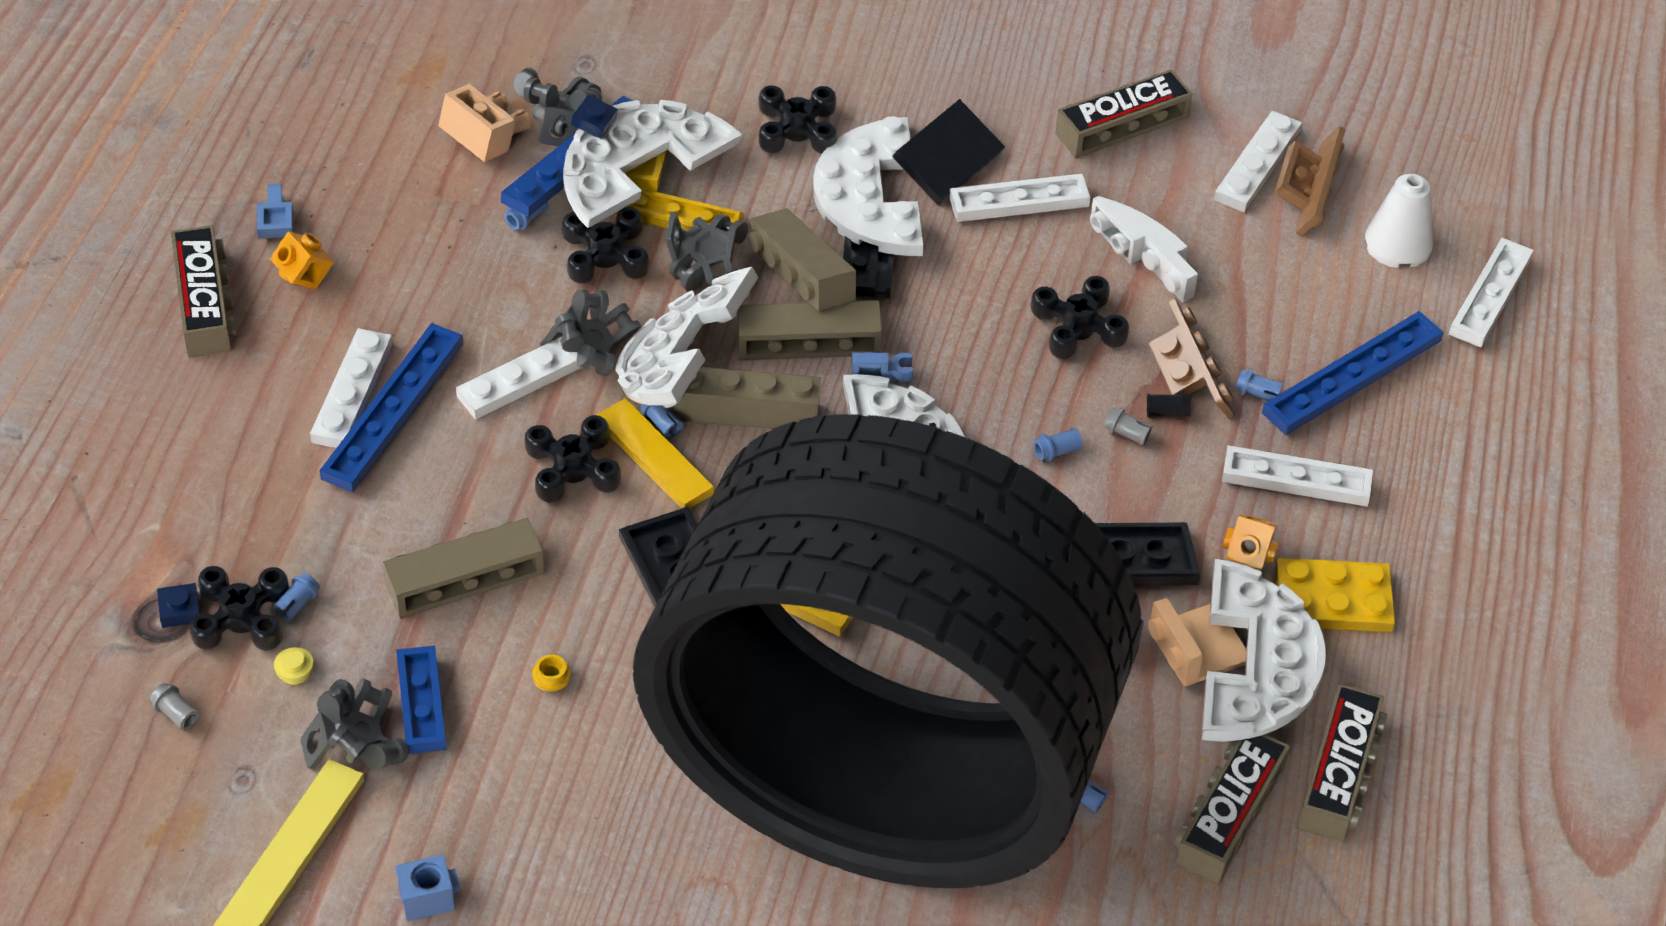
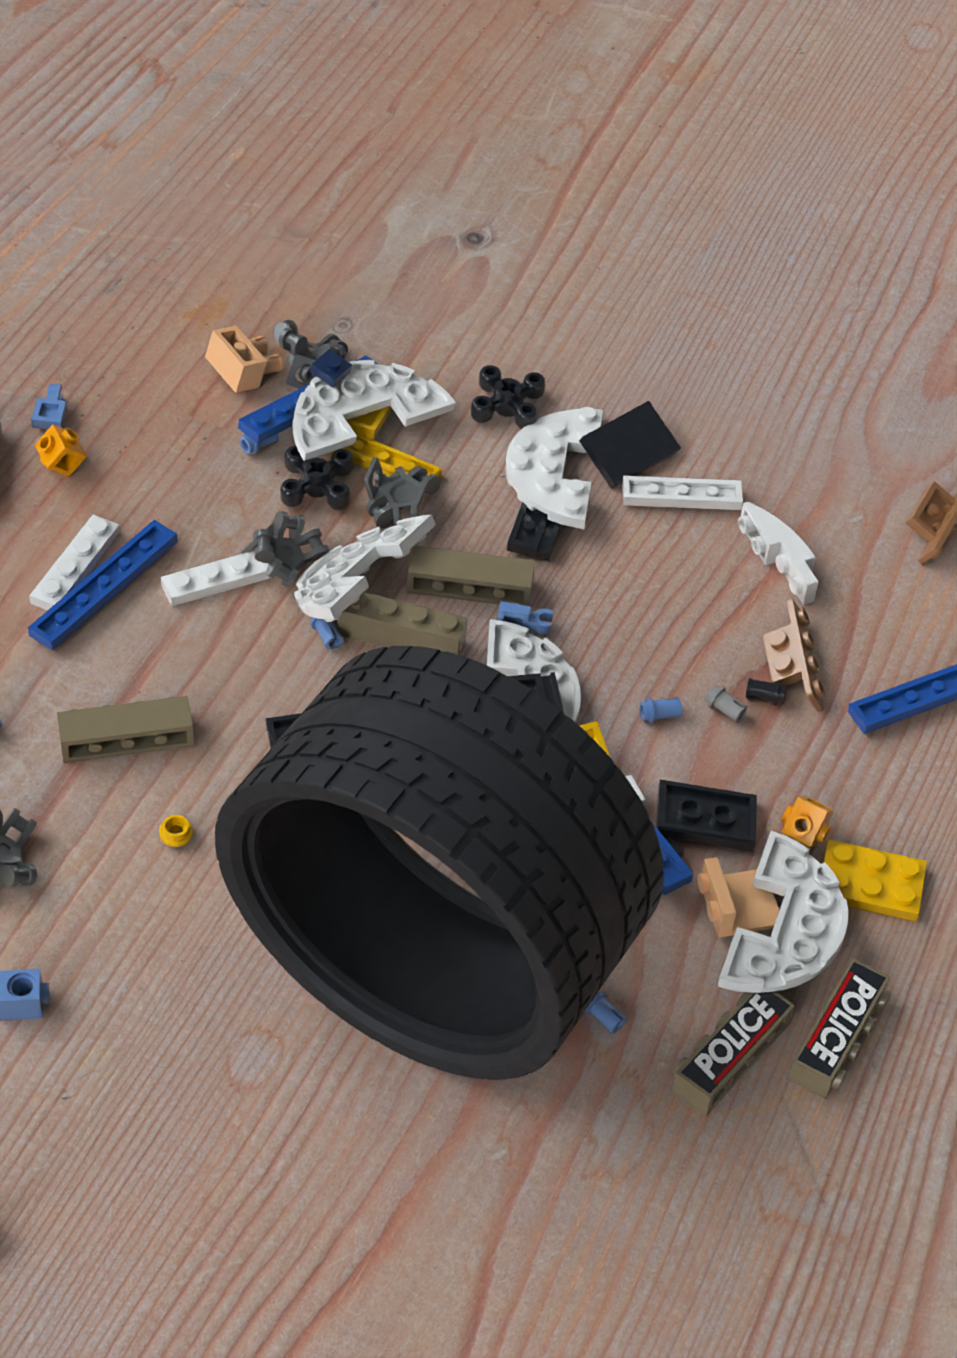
camera: 10 degrees right, 0 degrees up
(421, 699) = (60, 834): blue plate -> none
(572, 458) = (241, 652): black gear -> none
(656, 455) = (305, 649): yellow tile -> none
(803, 259) = (478, 515): dark tan brick -> none
(1079, 317) = (707, 602): black gear -> none
(1123, 113) = (790, 435): brick -> none
(1257, 161) = (898, 494): white plate -> none
(1257, 385) = (848, 686): medium blue pin -> none
(1297, 475) = (864, 771): white plate -> none

